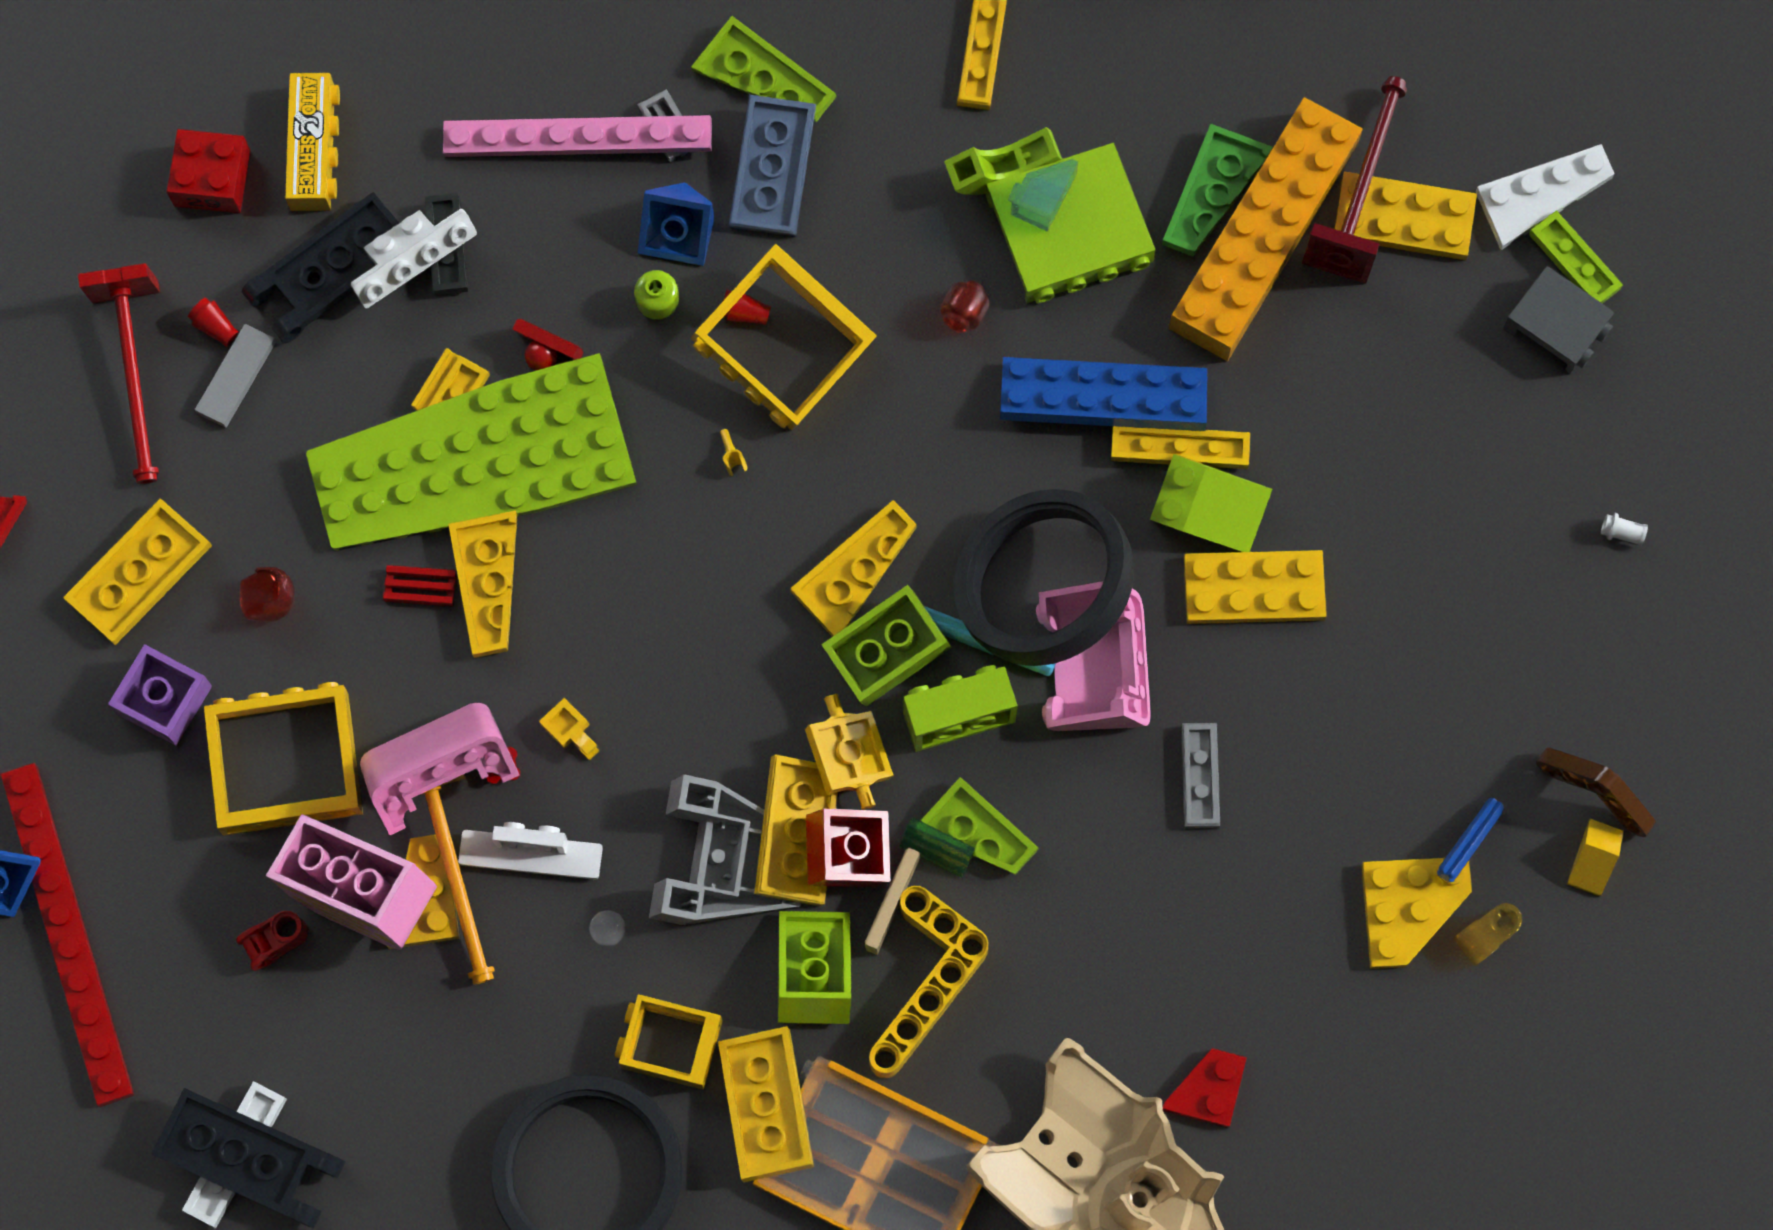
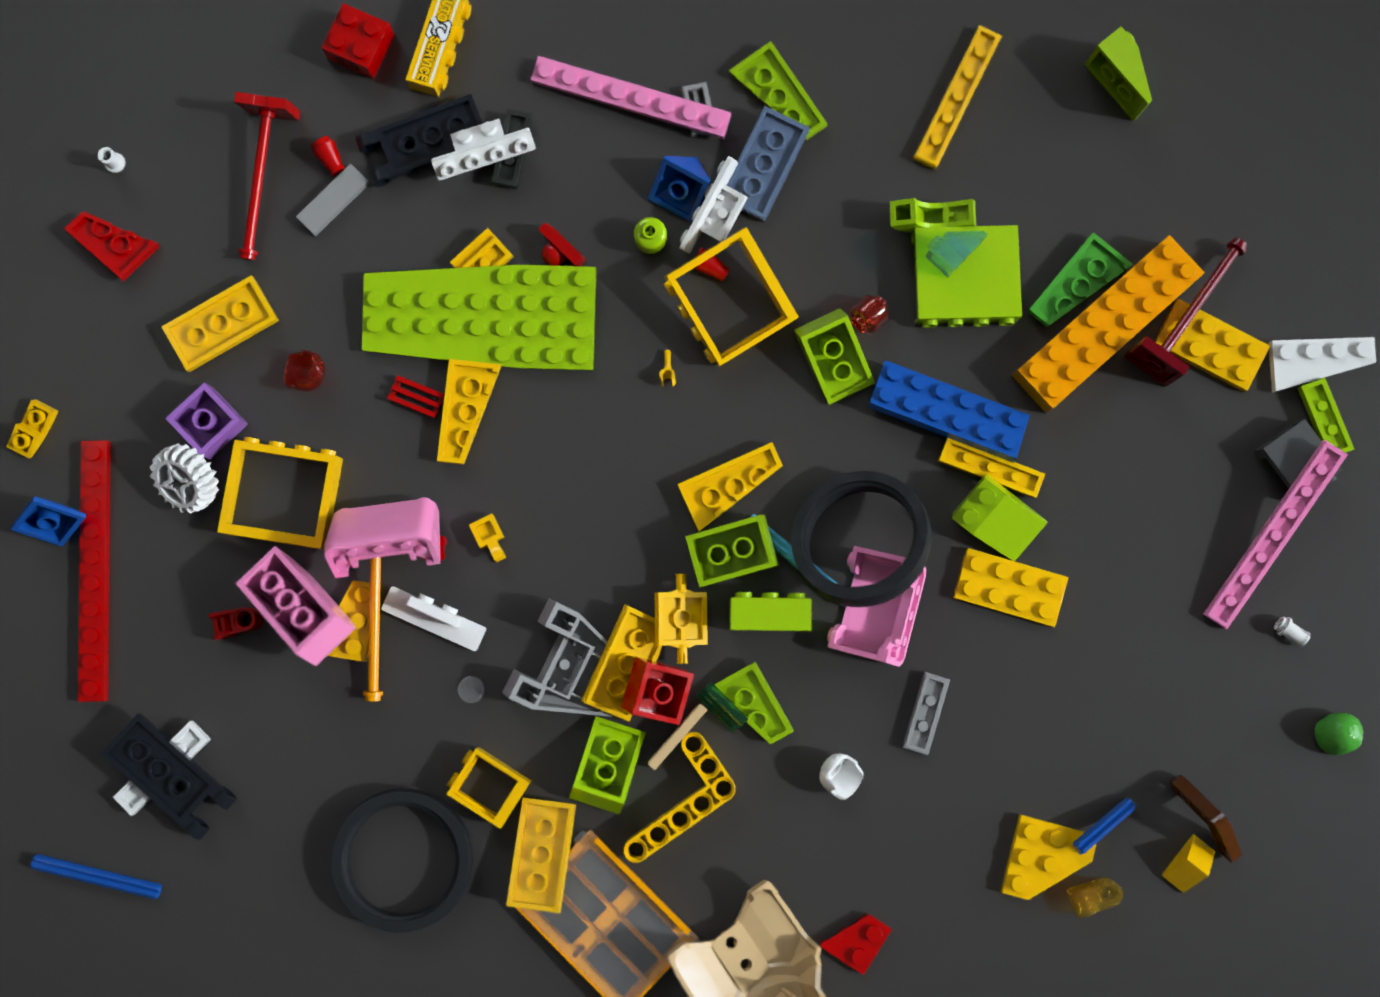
camera: 15 degrees right, 10 degrees up
(142, 782) = (184, 478): none -> white gear
(732, 238) = (718, 209): none -> white bracket
(938, 371) = (834, 355): none -> lime slope
(1117, 882) = (840, 775): none -> white hair
(1559, 417) = (1275, 534): none -> bright pink tile
(1725, 636) = (1339, 733): none -> bright green hair

